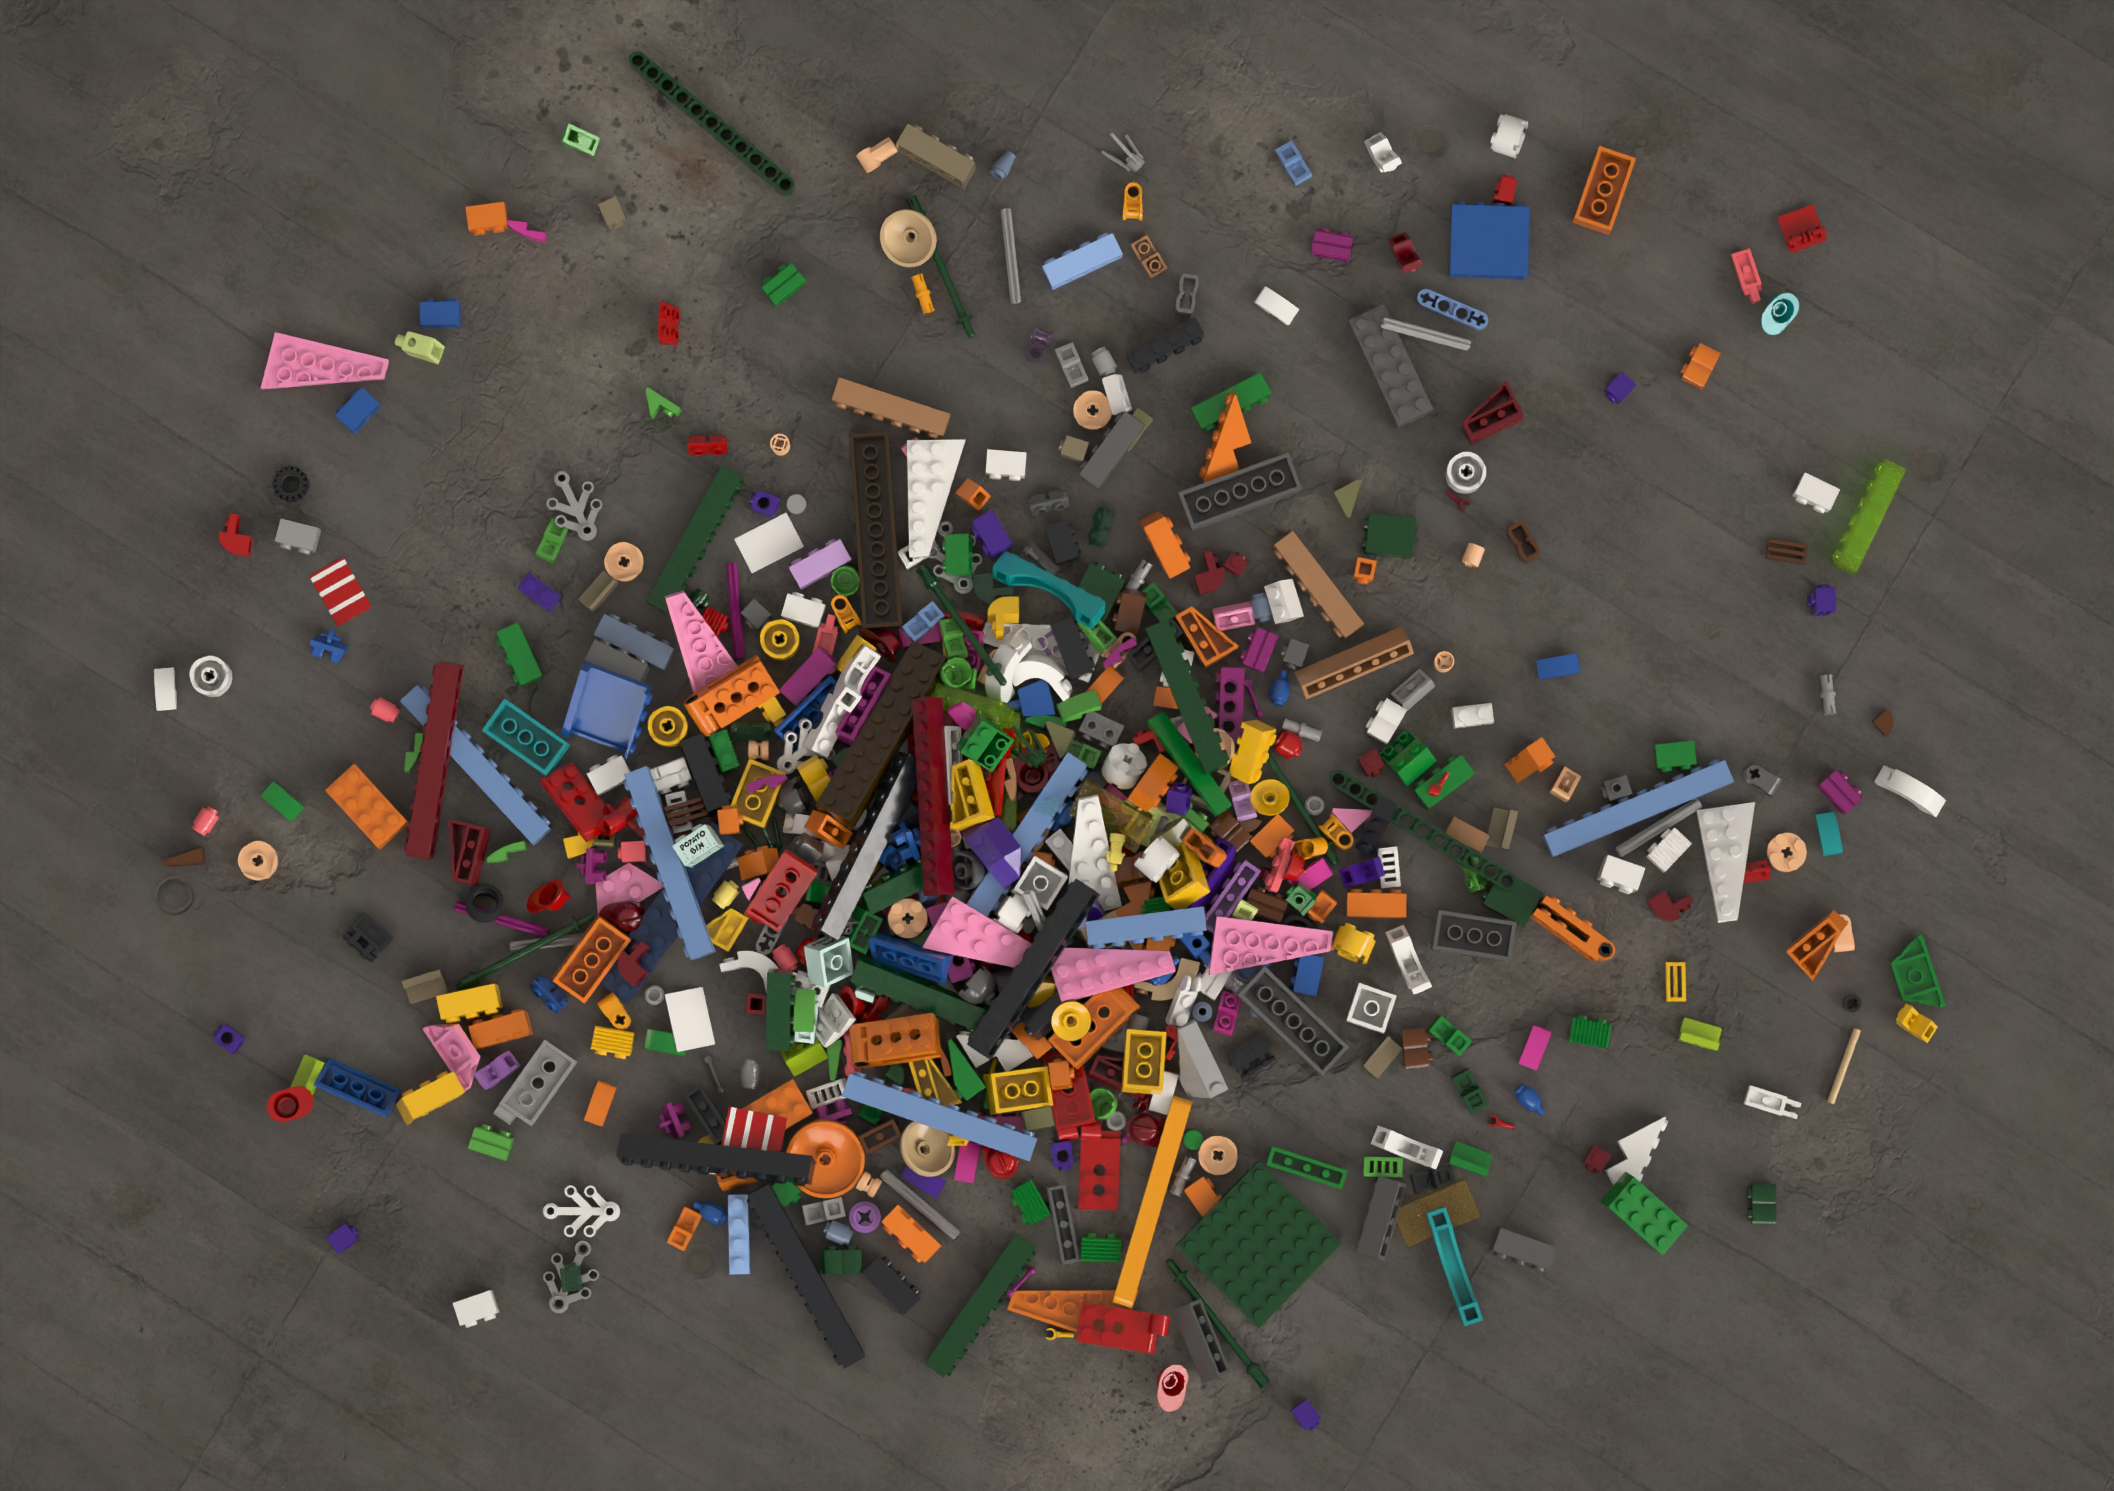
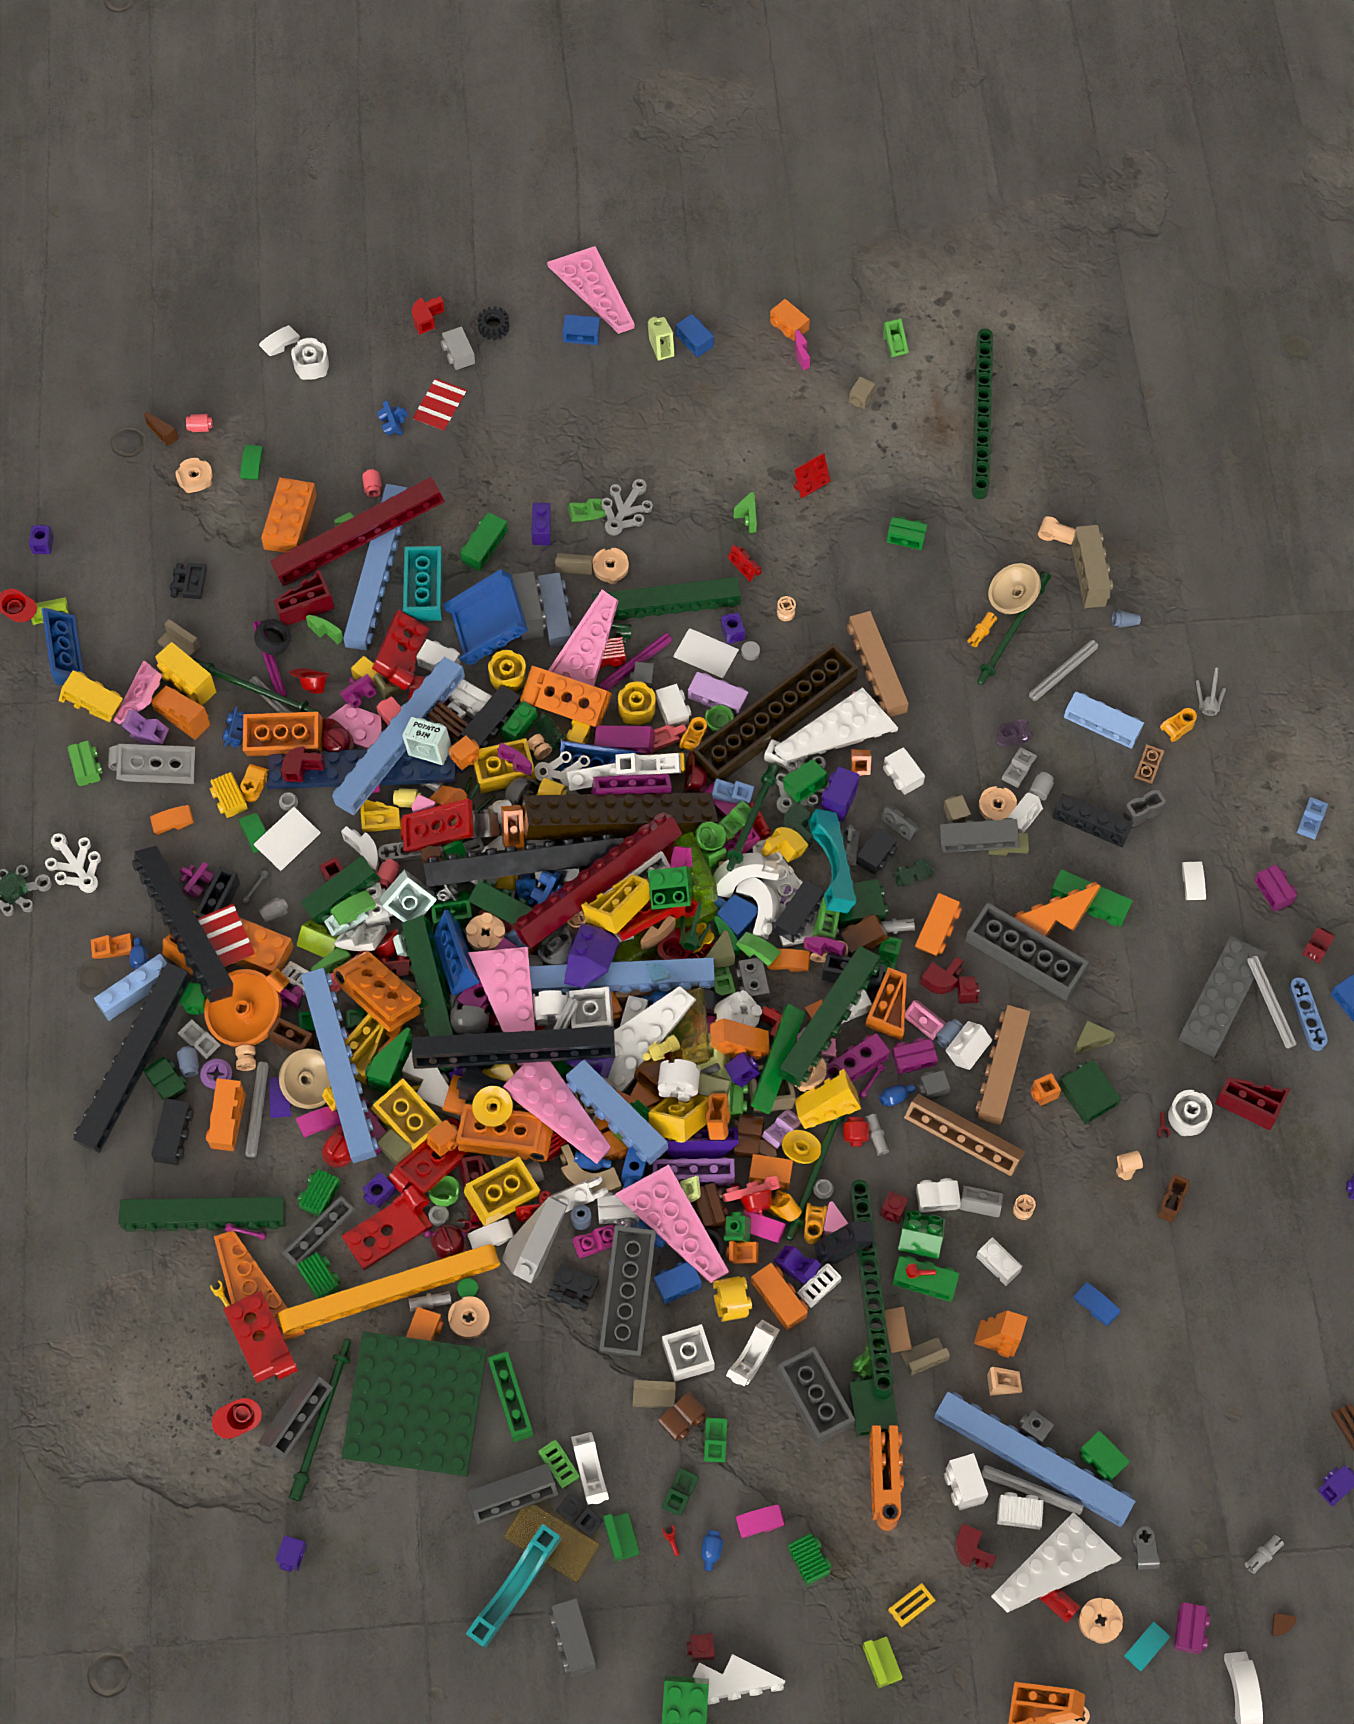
camera: 55 degrees right, 20 degrees down
(824, 1115) = (277, 980): none -> orange tile

